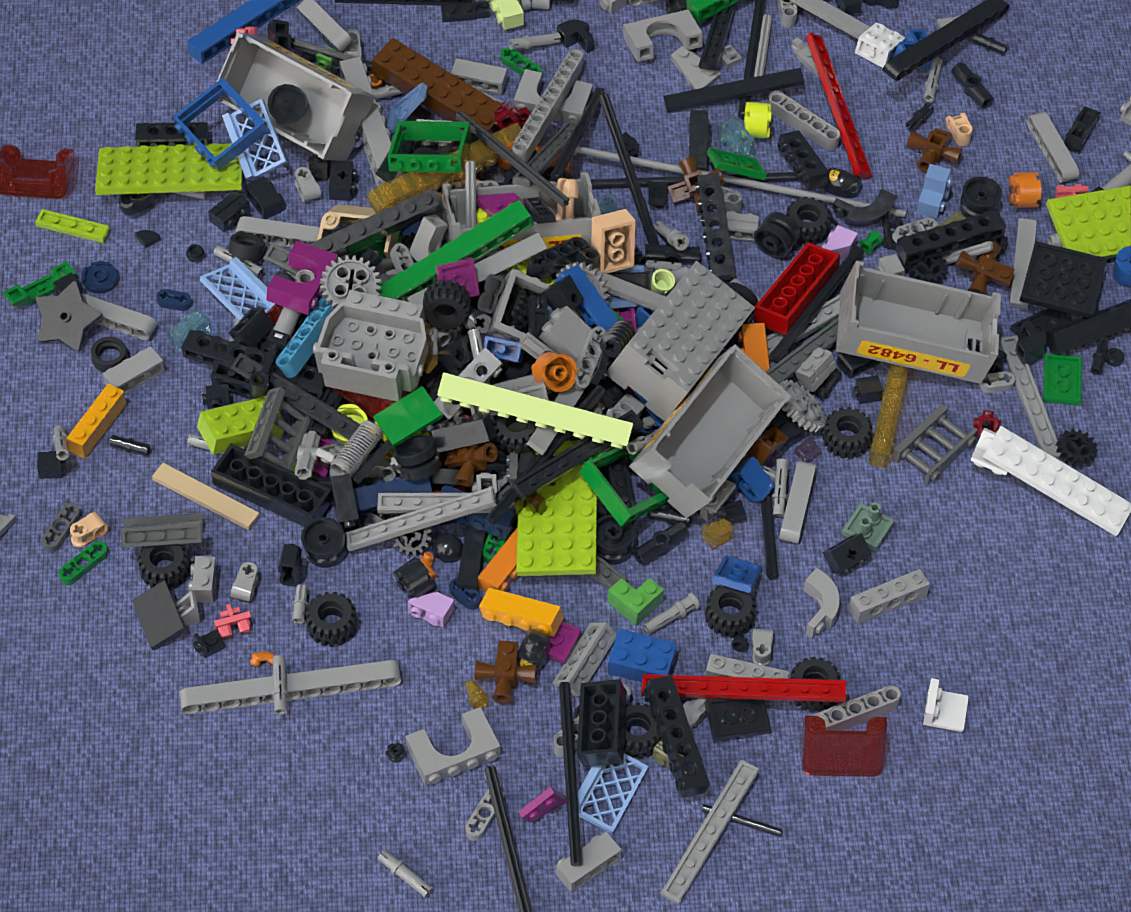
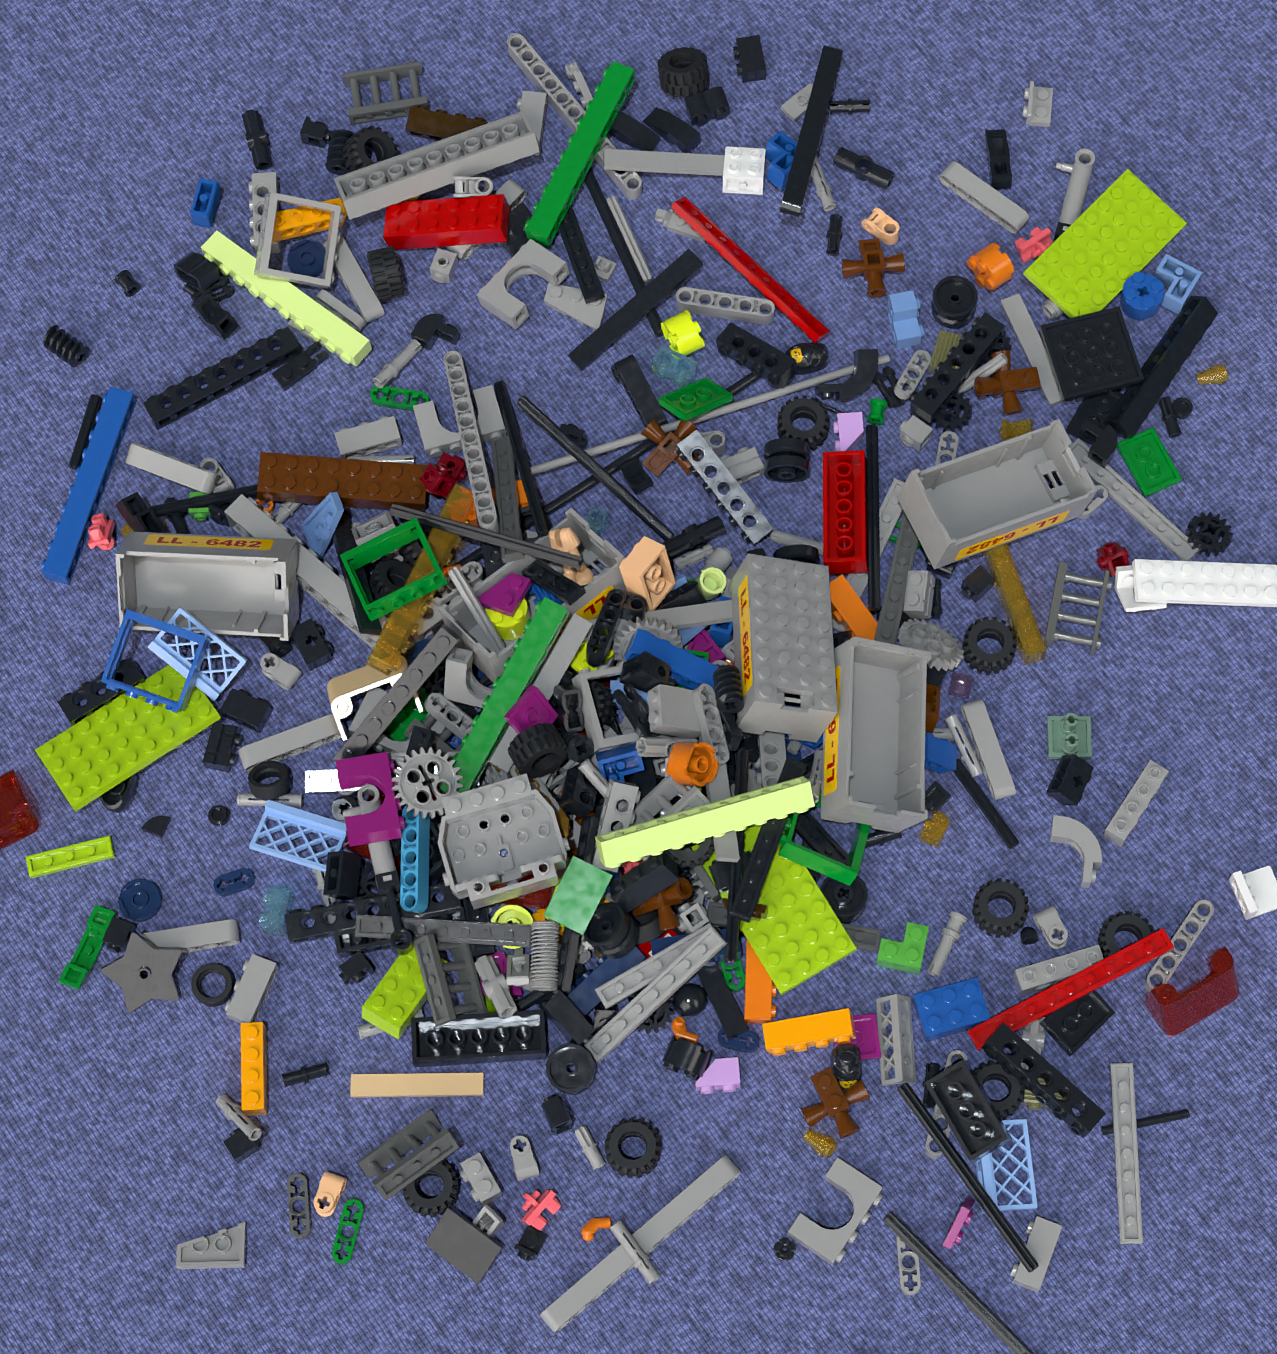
camera: 25 degrees left, 15 degrees up
(298, 105) = (194, 595): black wheel -> none
(653, 548) = (884, 885): black piece -> none
(673, 237) = (689, 522): light grey pin -> none
(737, 574) = (985, 867): blue tile -> none

